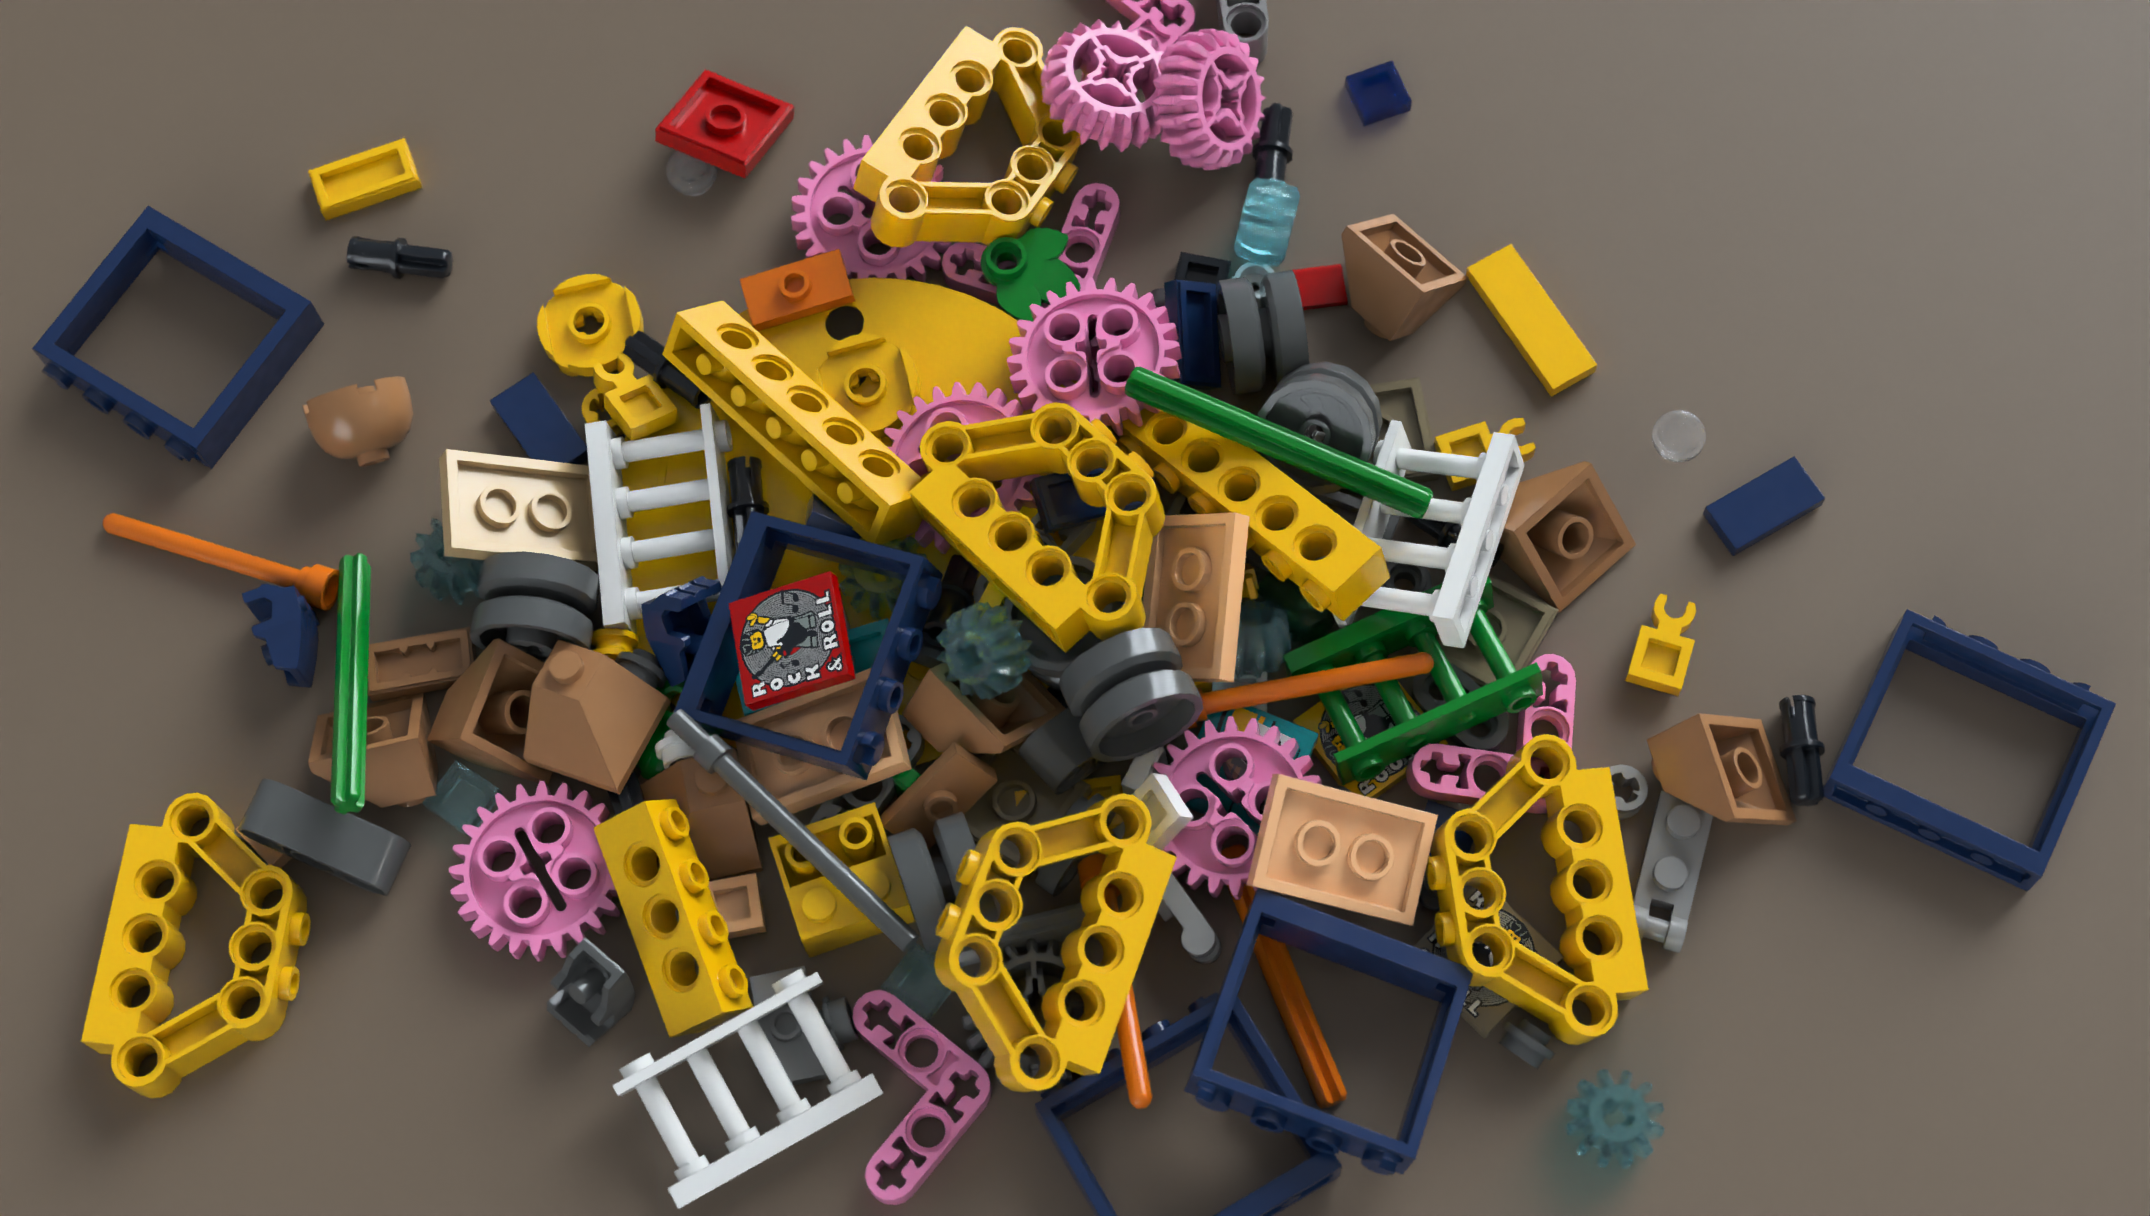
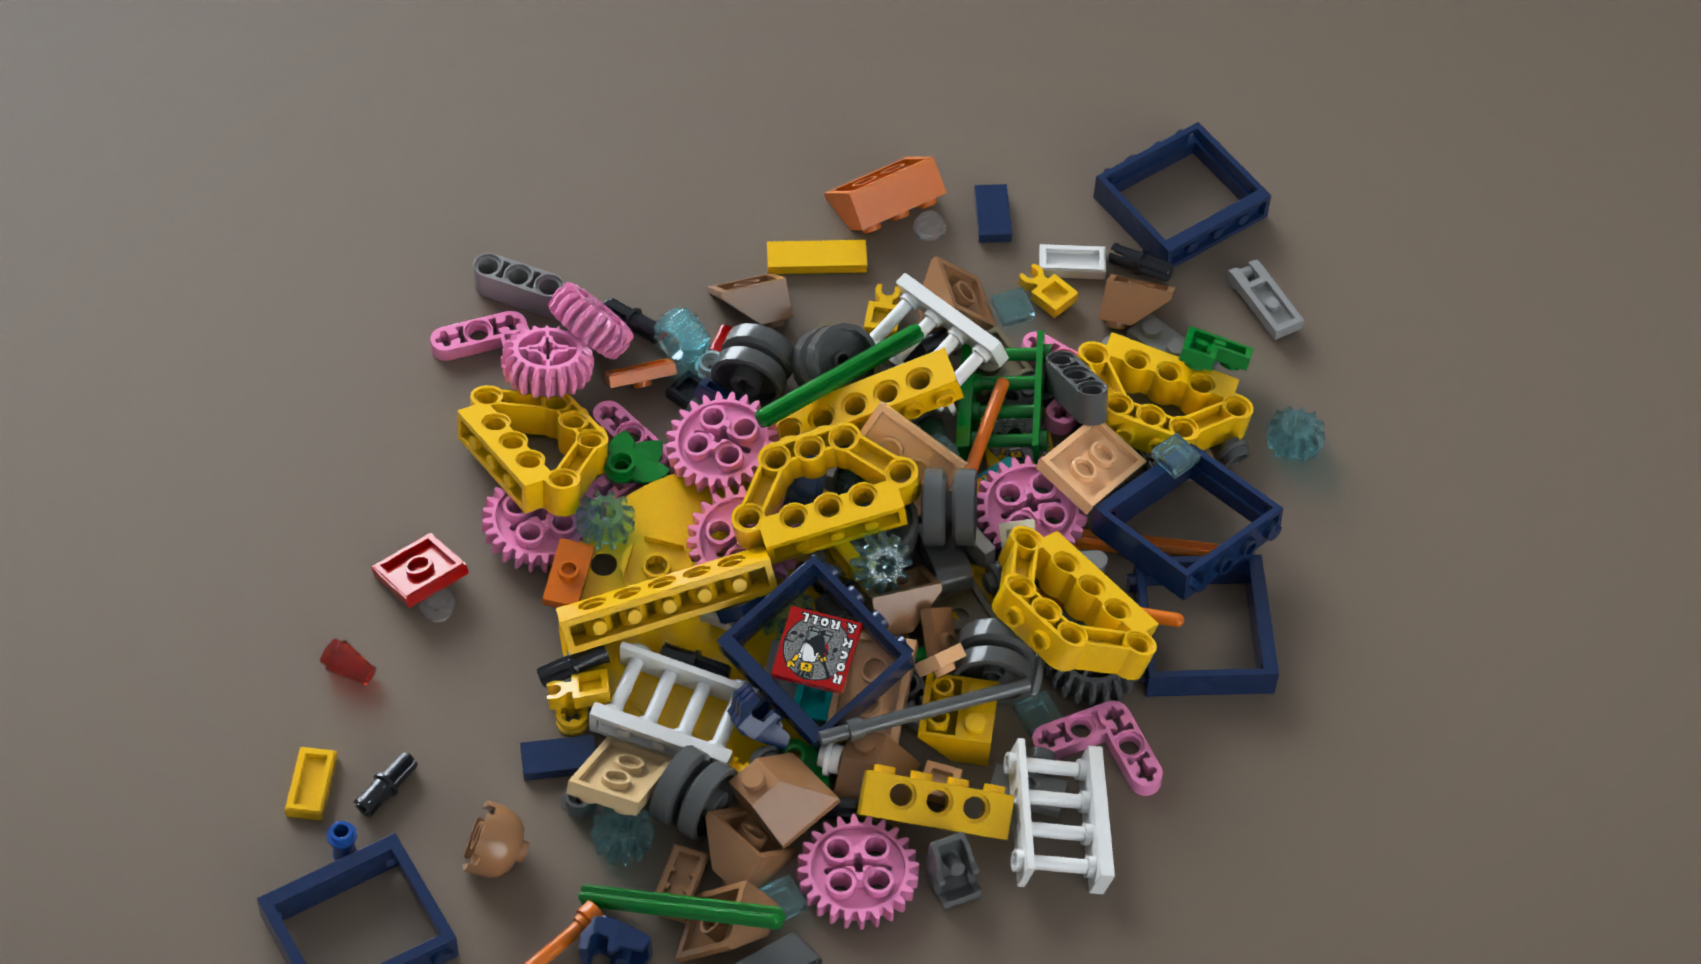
camera: 70 degrees left, 15 degrees down
(283, 251) = (342, 838): none -> blue pin
(548, 119) = (347, 662): none -> clear red cone
(567, 310) = (511, 718): yellow plate -> none
(873, 291) = (605, 520): none -> clear light blue gear
(880, 809) = (941, 662): none -> light nougat plate
(1185, 207) = (640, 374): none -> orange plate
(1378, 93) = (627, 257): clear blue tile -> none
(1422, 960) = (1175, 455): none -> clear light blue tile
(1464, 765) = (1076, 388): none -> dark grey beam
(1609, 615) = (1013, 307): none -> clear light blue tile
(1680, 915) = (1203, 348): none -> green plate
(1696, 349) = (887, 193): none -> orange slope
(1747, 655) = (1073, 261): none -> white tile
(1849, 961) = (1265, 299): none -> light grey plate

